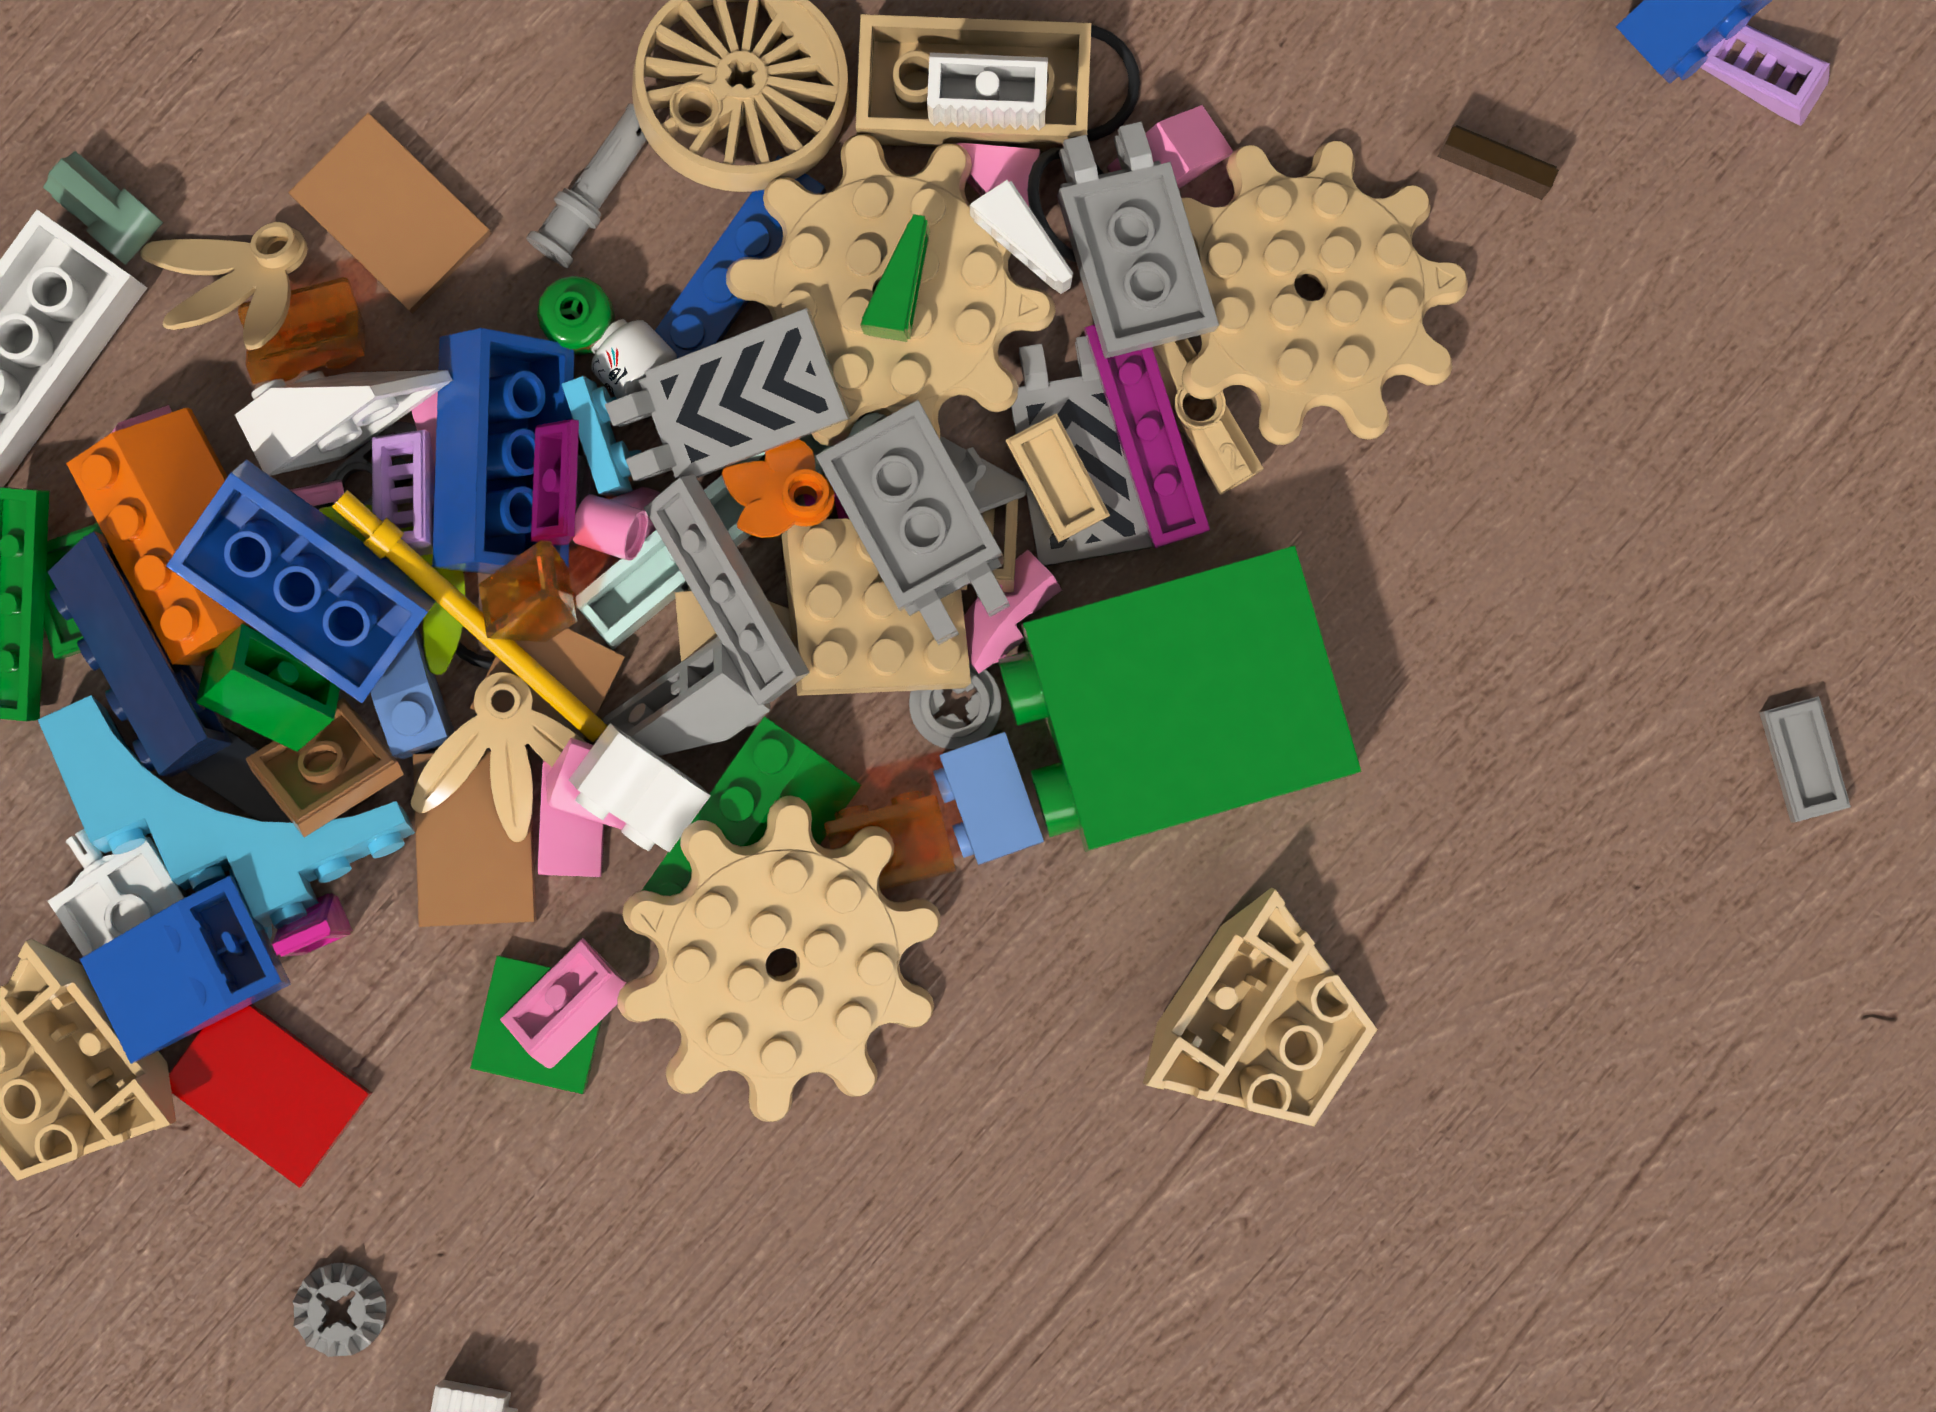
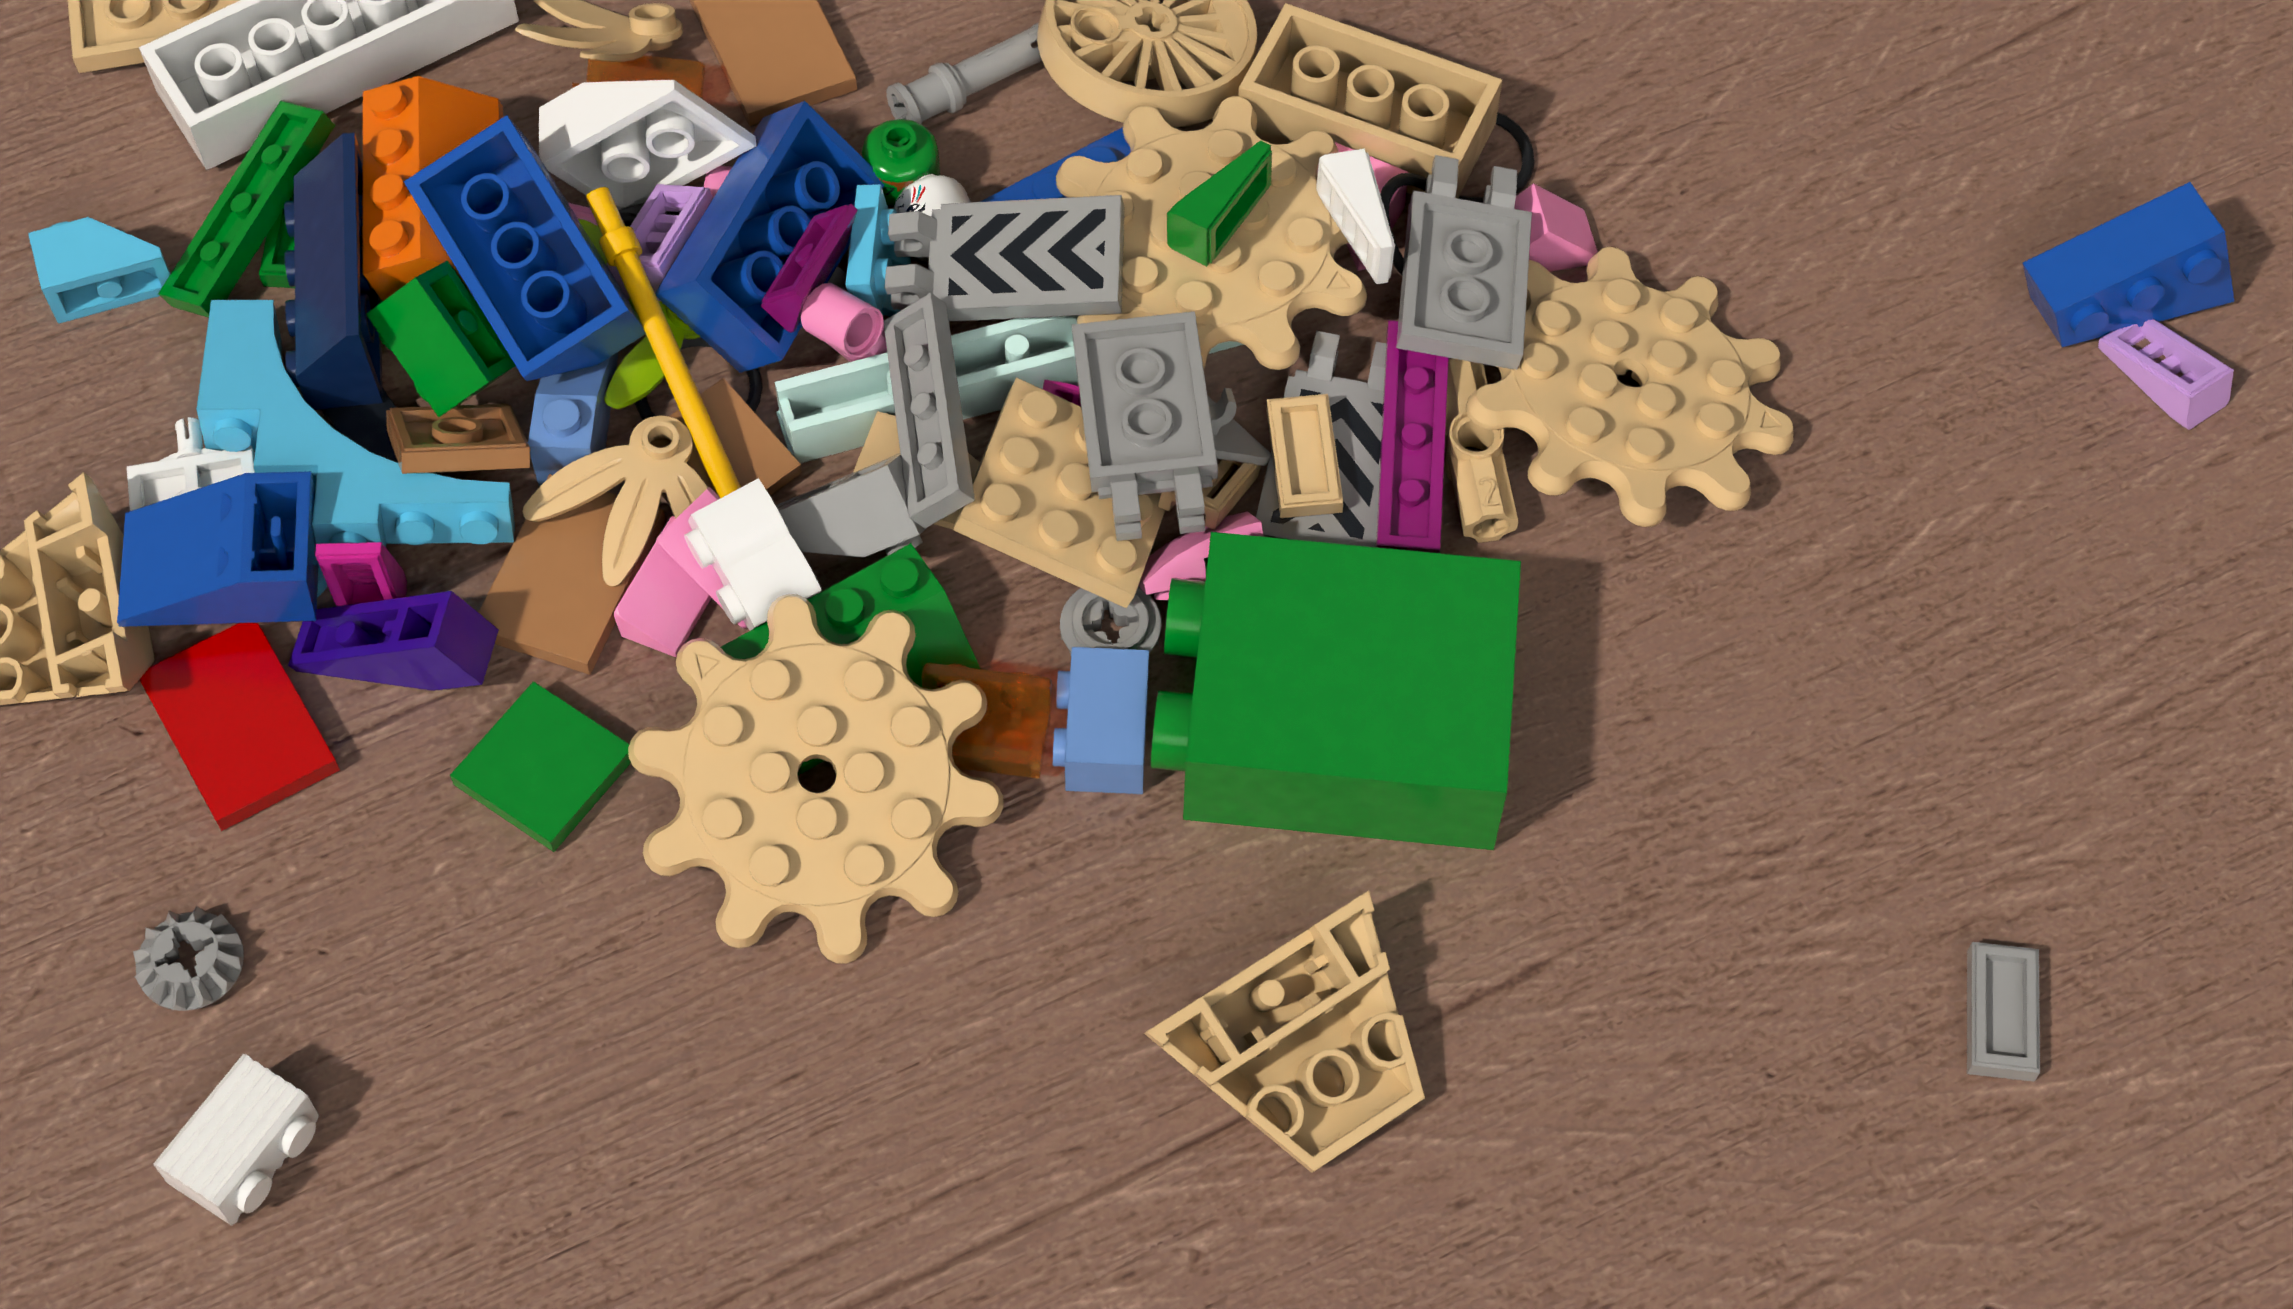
camera: 20 degrees right, 25 degrees down
(367, 971) = (402, 641): none -> dark purple slope
(529, 597) = (736, 348): clear orange slope -> none
(564, 1004) = (574, 748): bright pink slope -> none
(771, 488) = (1029, 354): orange plate -> none
(987, 90) = (1377, 78): white brick -> none
(1498, 162) = (1862, 346): dark brown tile -> none

